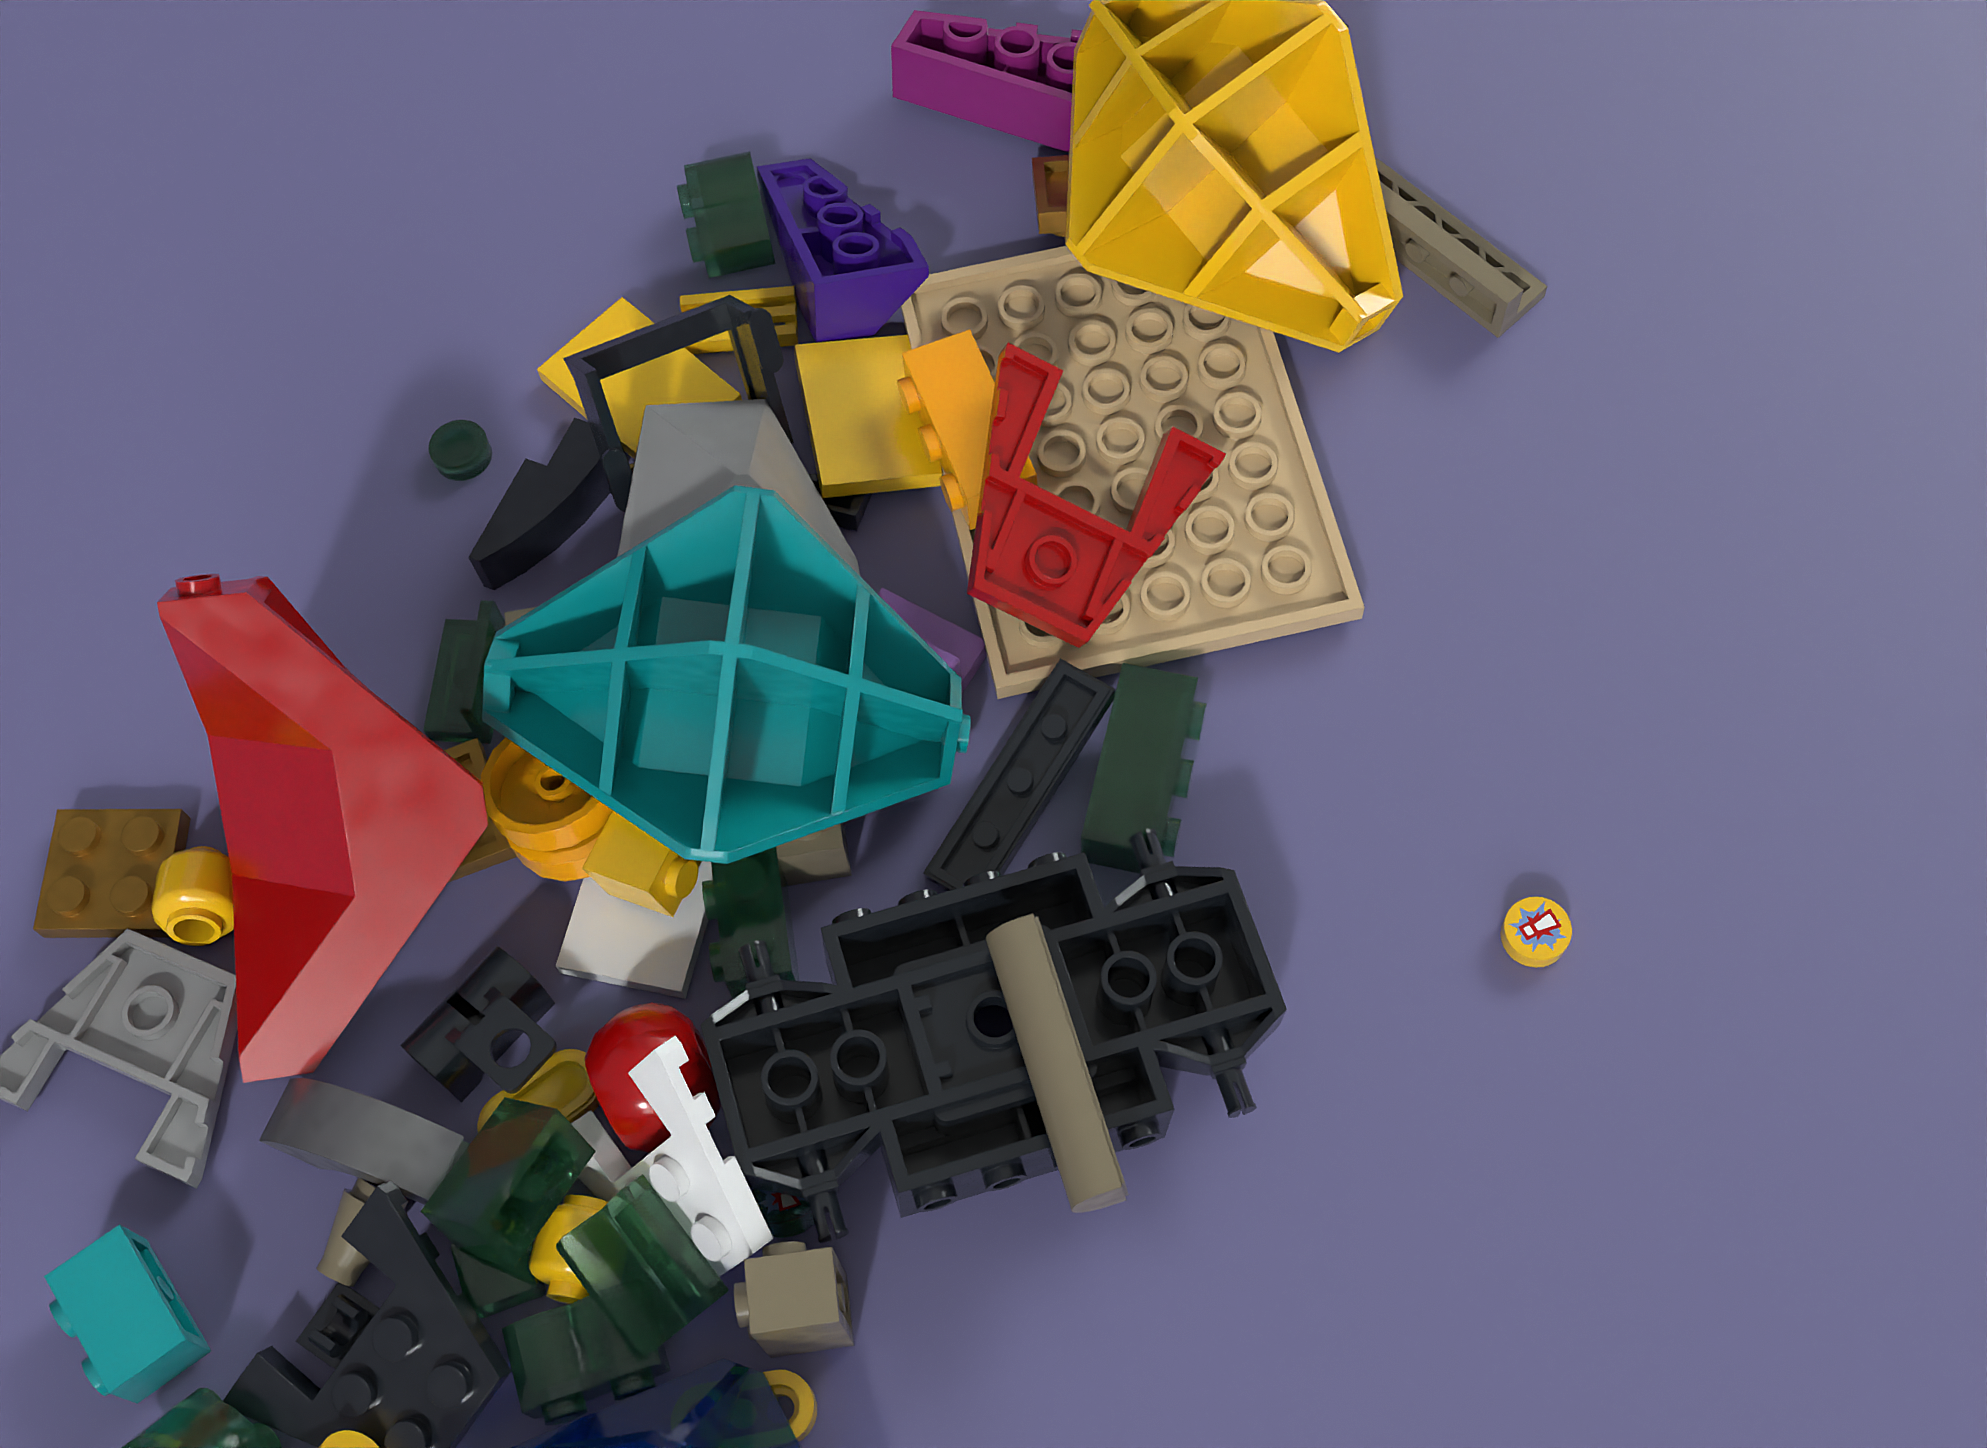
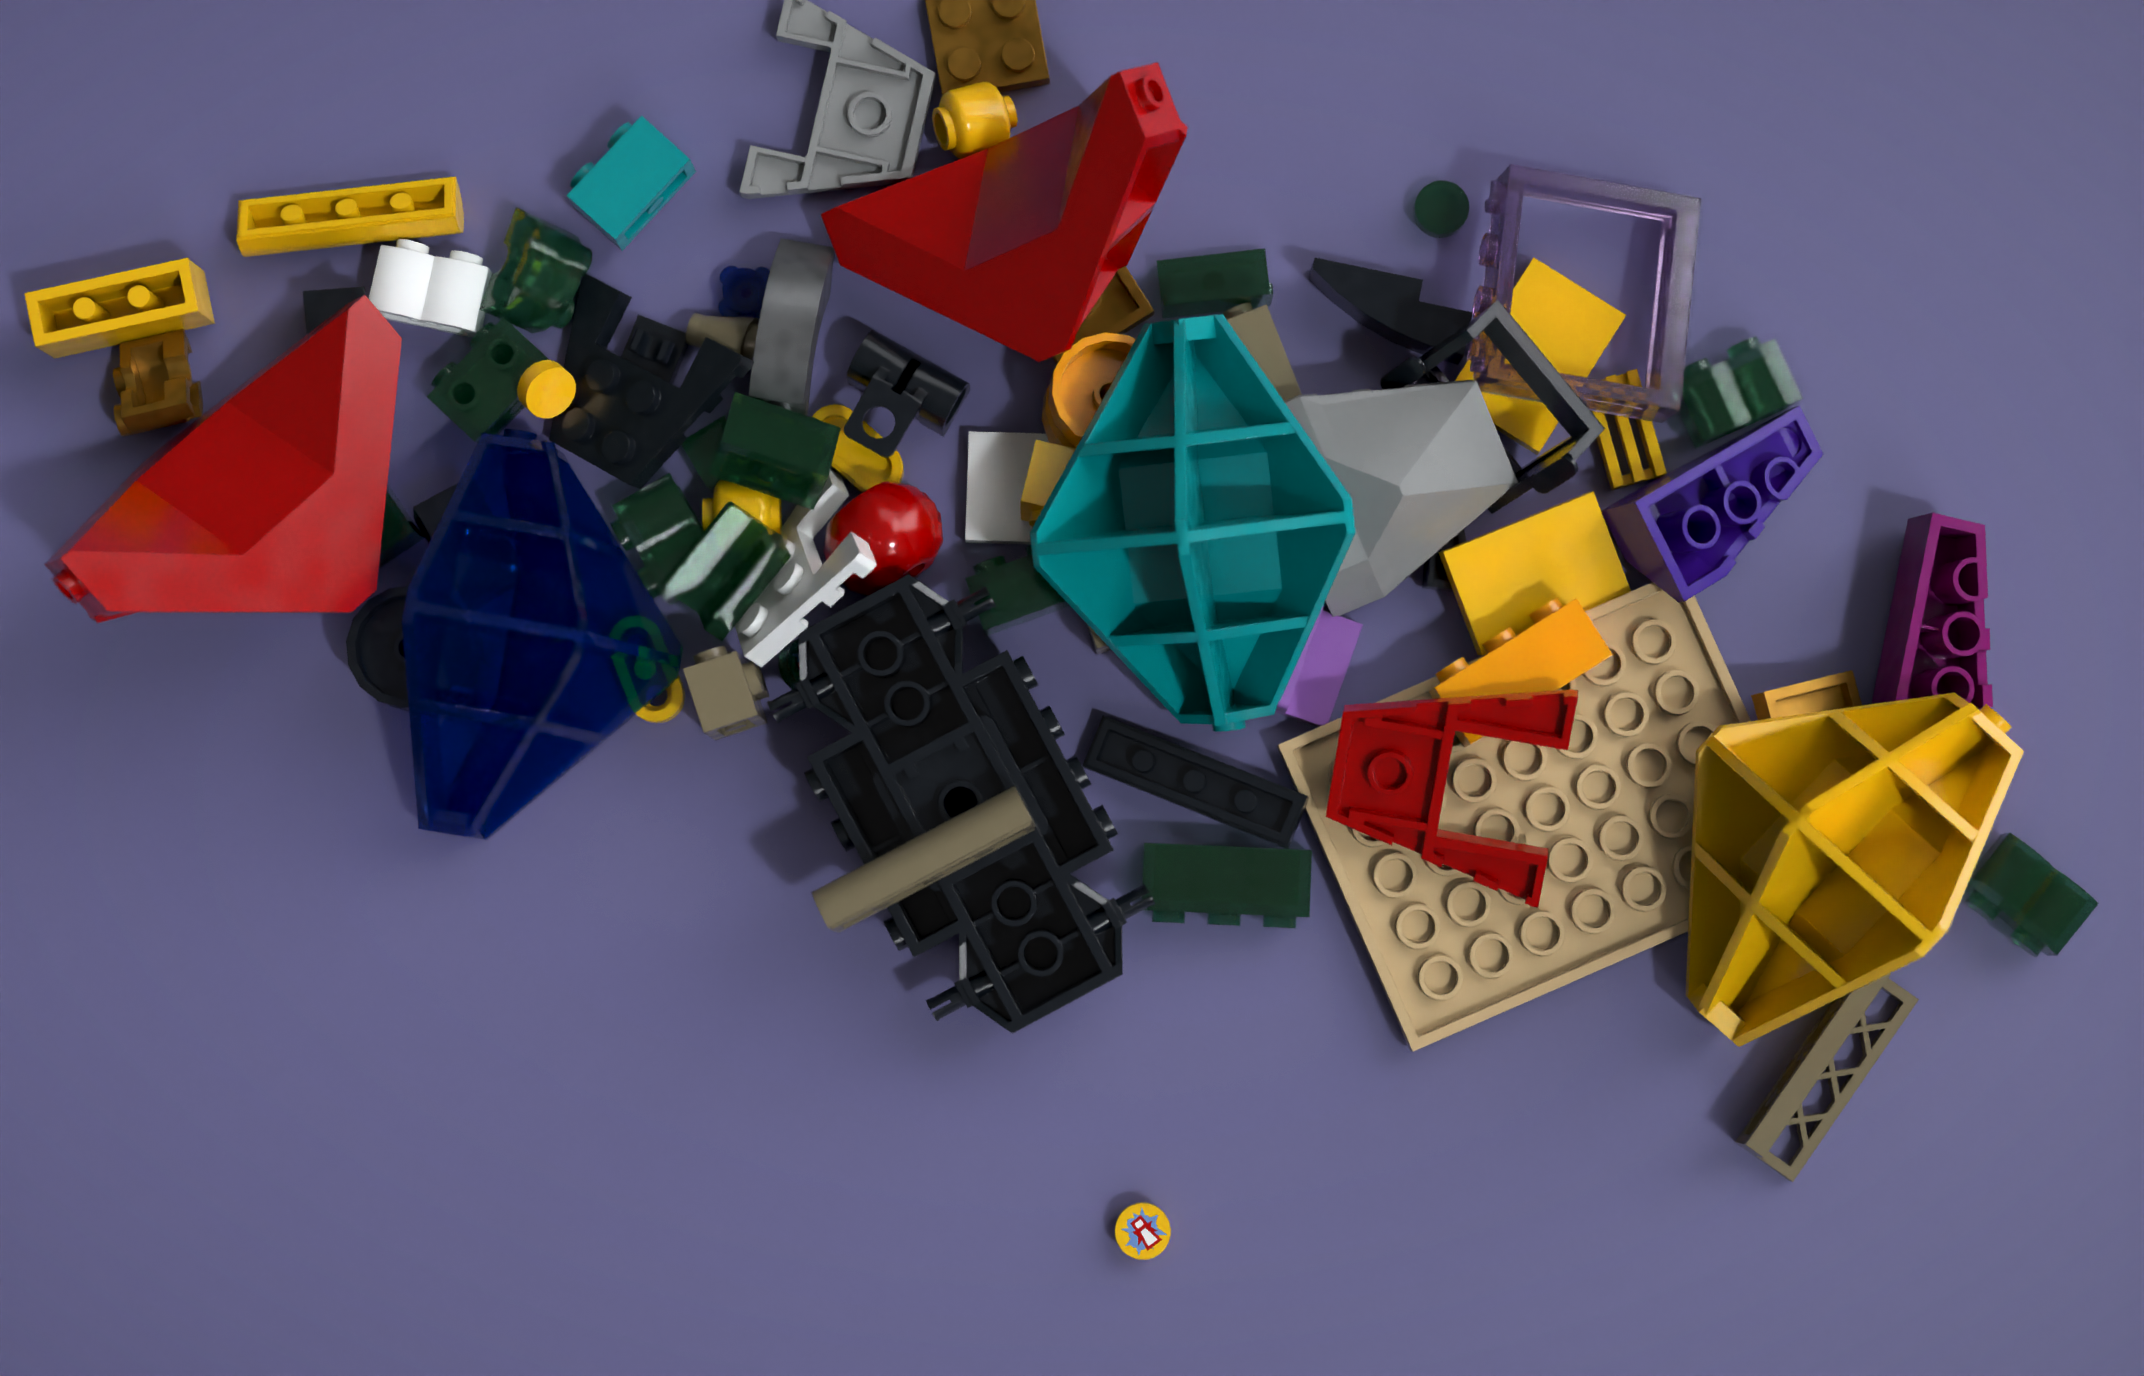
camera: 75 degrees right, 20 degrees up
(293, 1200) = (736, 280): none -> clear blue plate
(587, 242) = (1672, 290): none -> clear purple window

